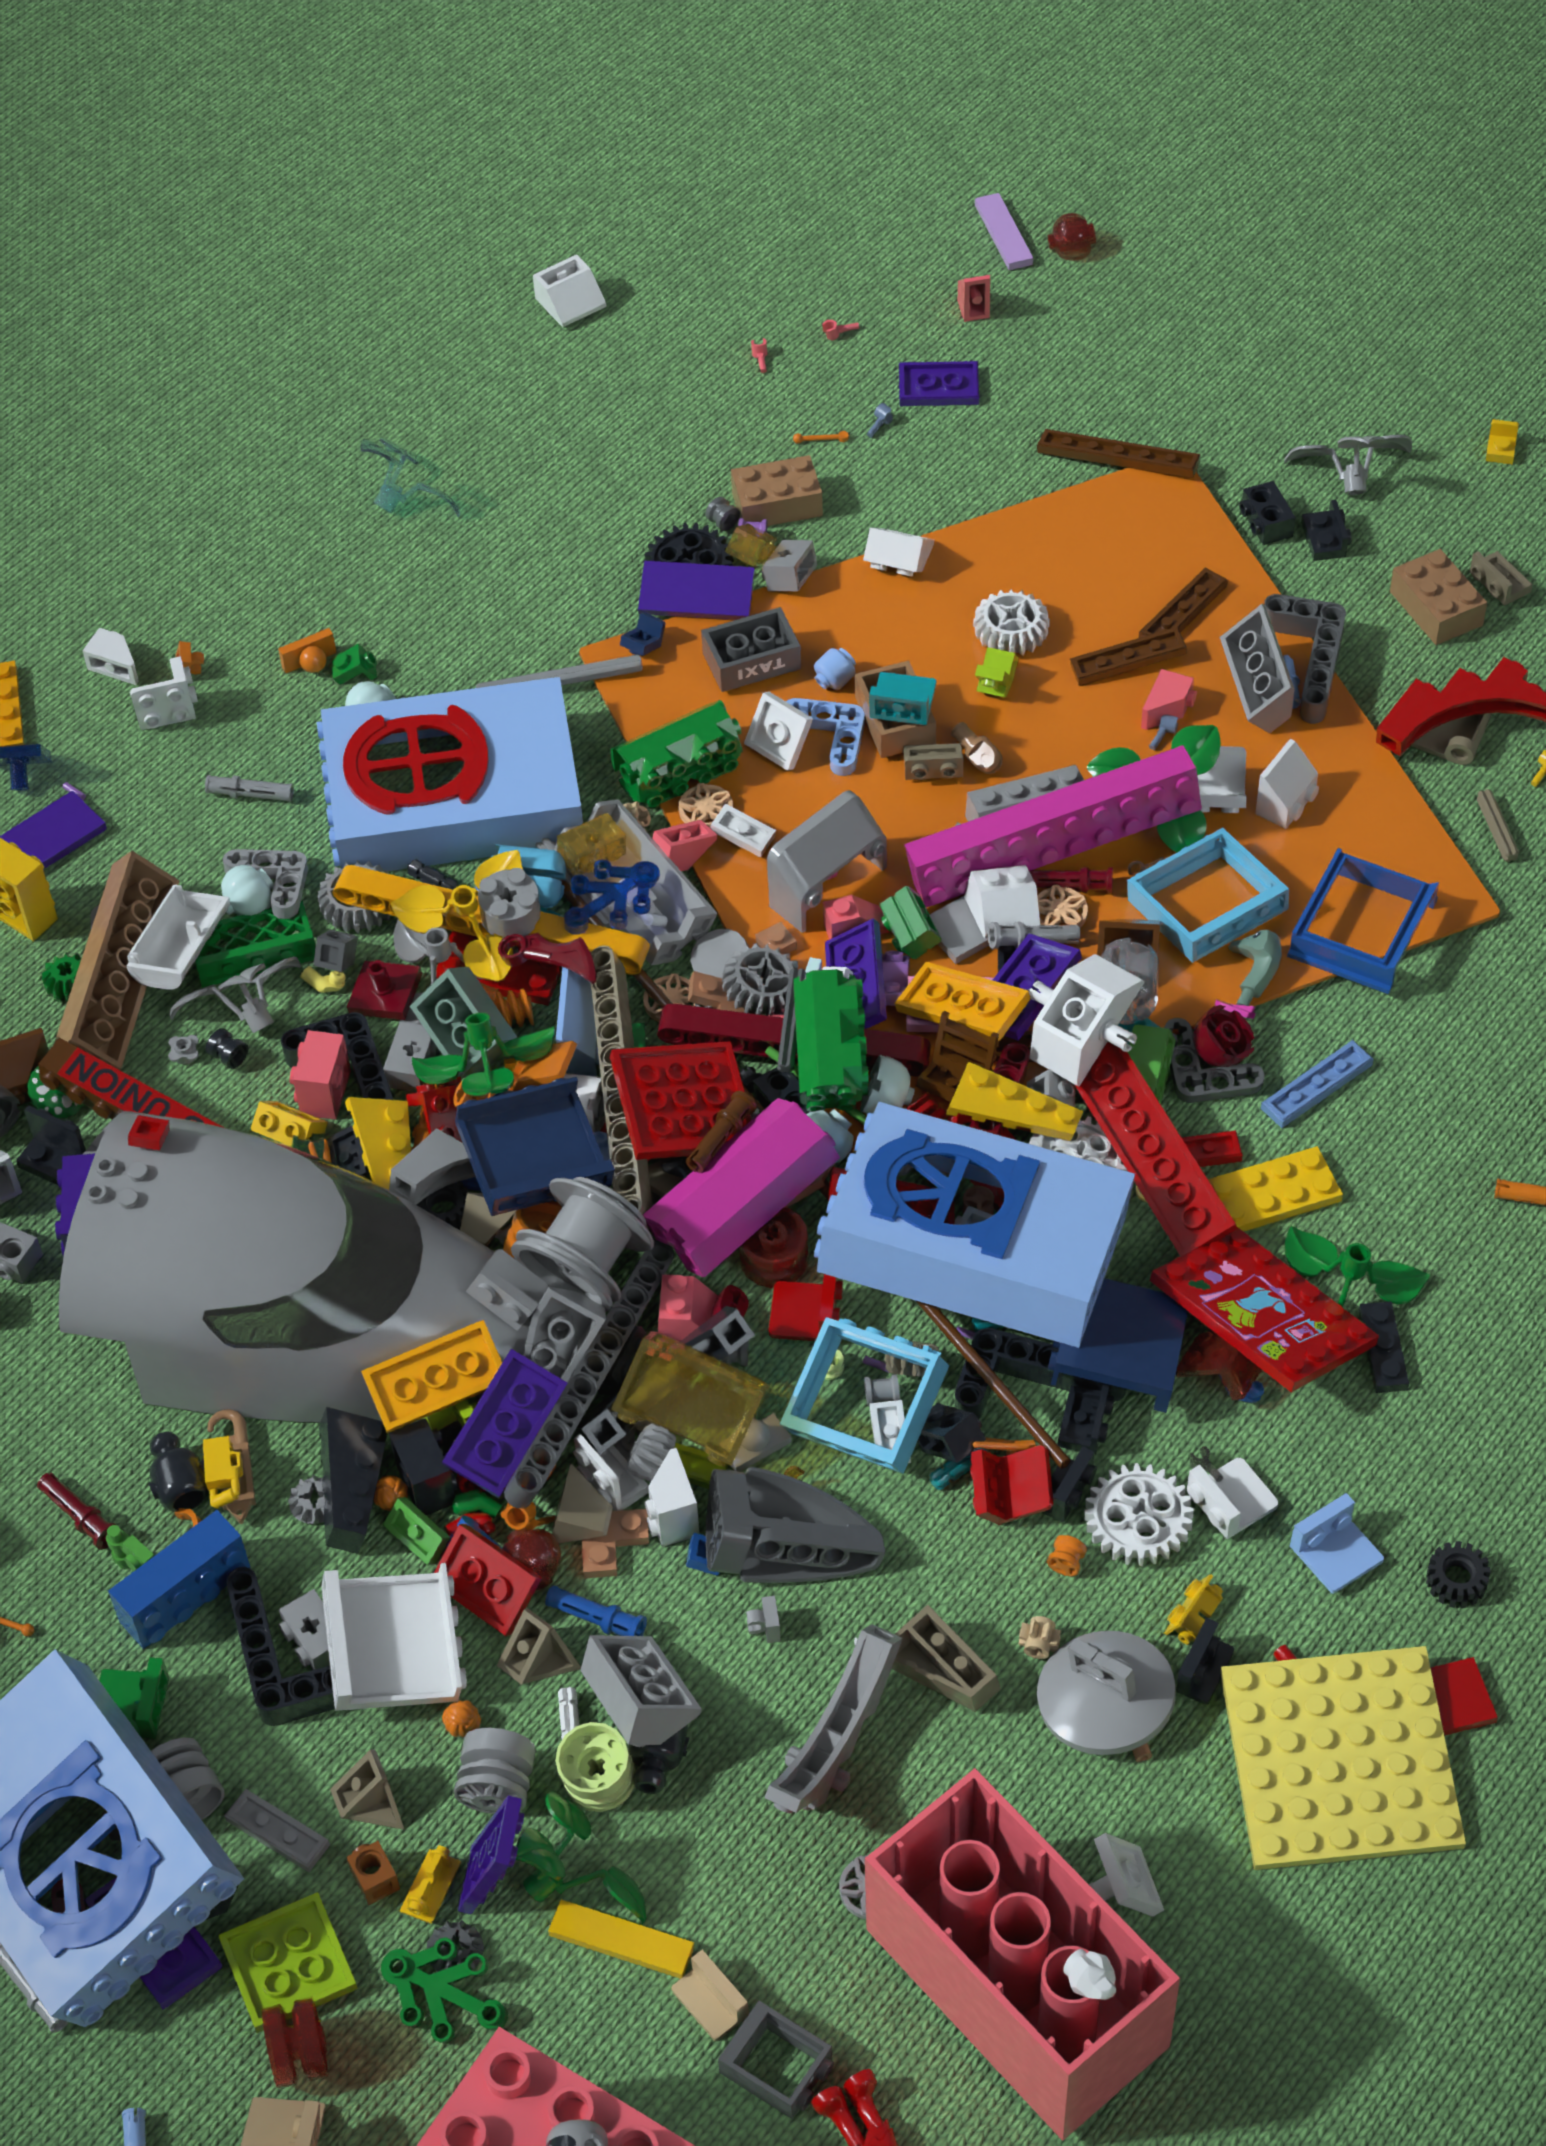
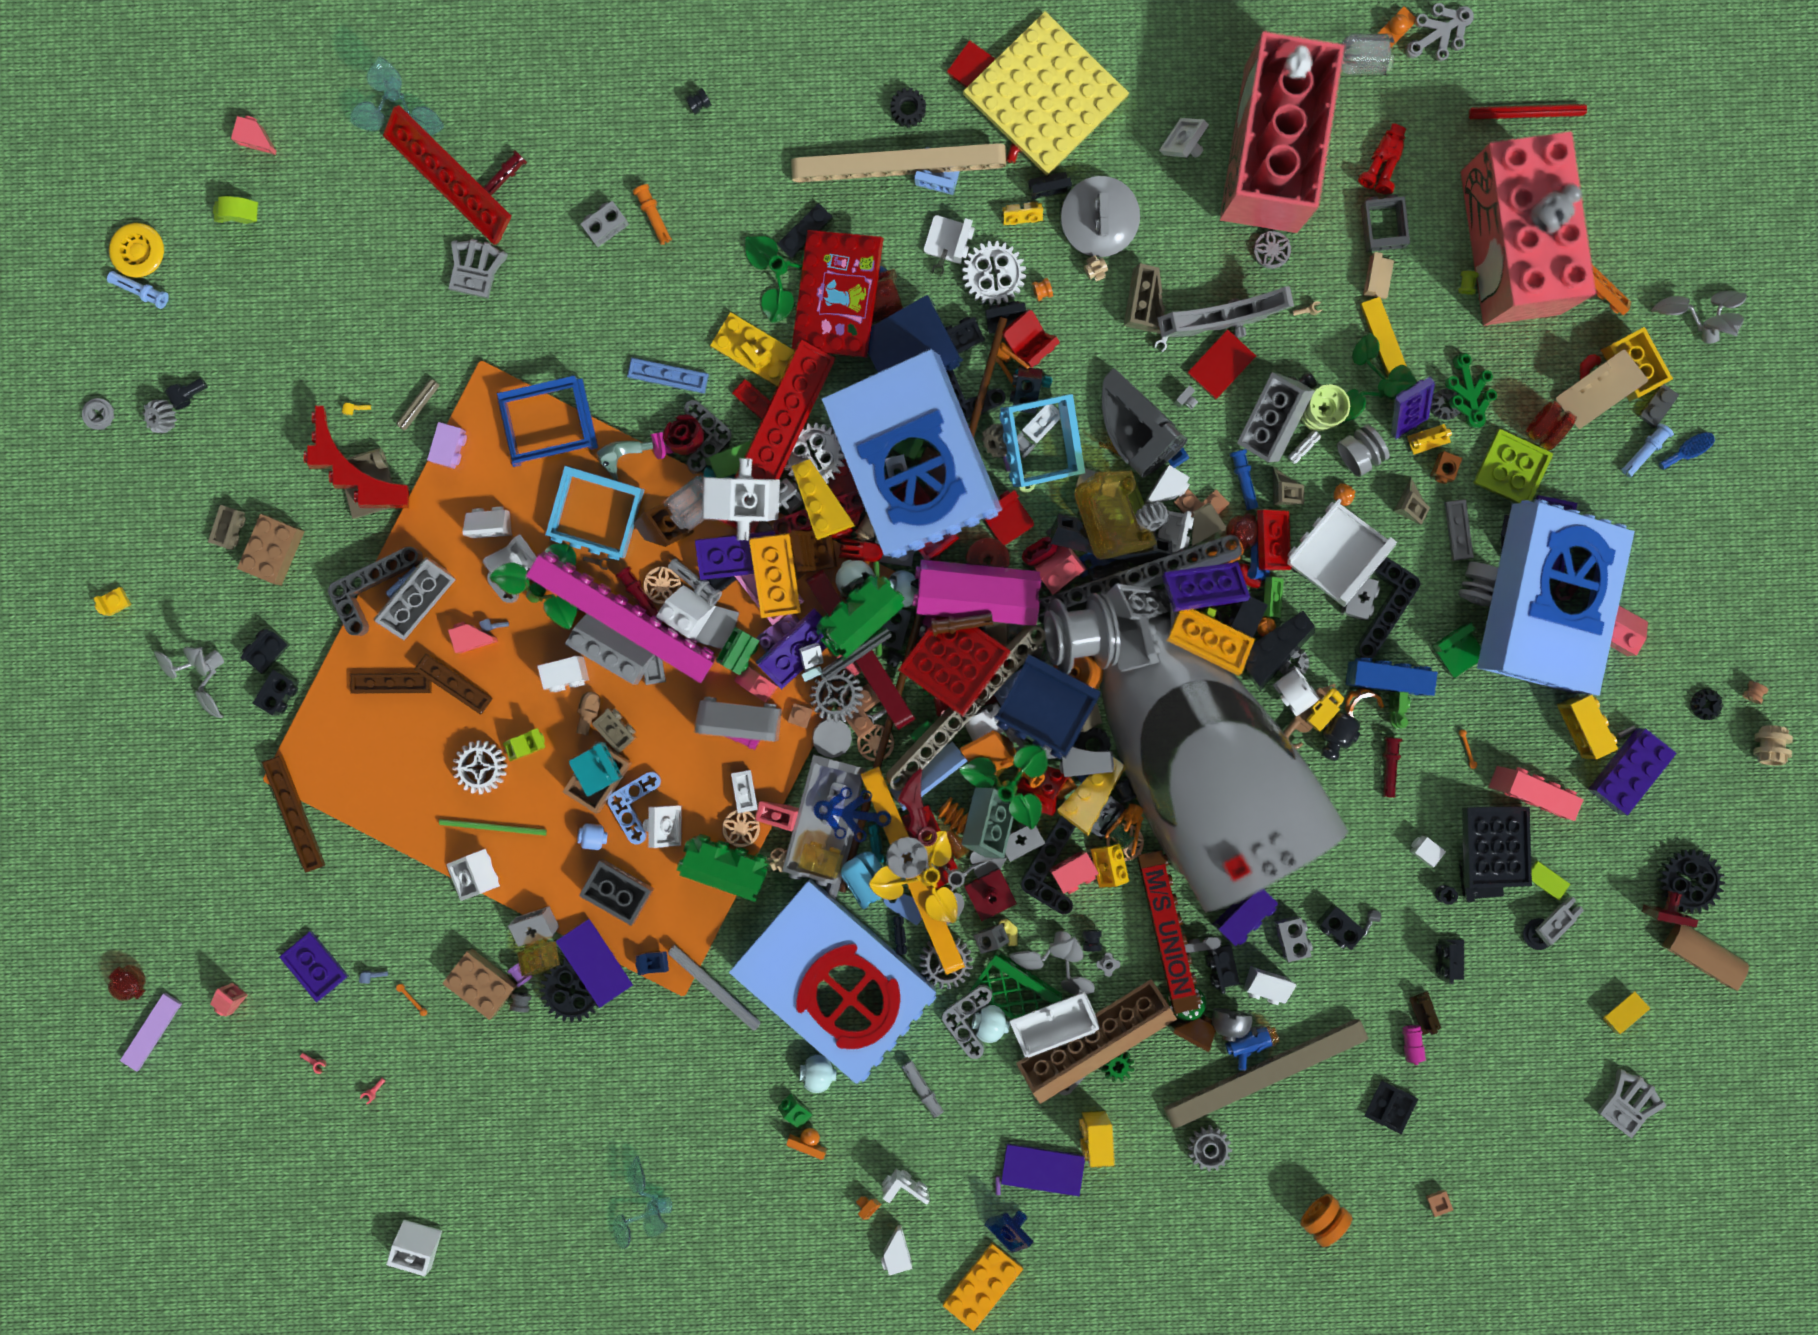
camera: 135 degrees left, 35 degrees up
(276, 1456) = (1296, 692): none -> white brick
(747, 1869) = (1310, 309): none -> tan hand
(772, 1702) = (1221, 364): none -> red tile
(933, 600) = (492, 827): none -> bright green axle
(1043, 742) = (563, 673): none -> white brick
(1260, 1167) = (752, 354): none -> yellow bracket
(1383, 1506) = (898, 162): none -> tan beam
(1419, 811) = (447, 445): none -> lavender brick

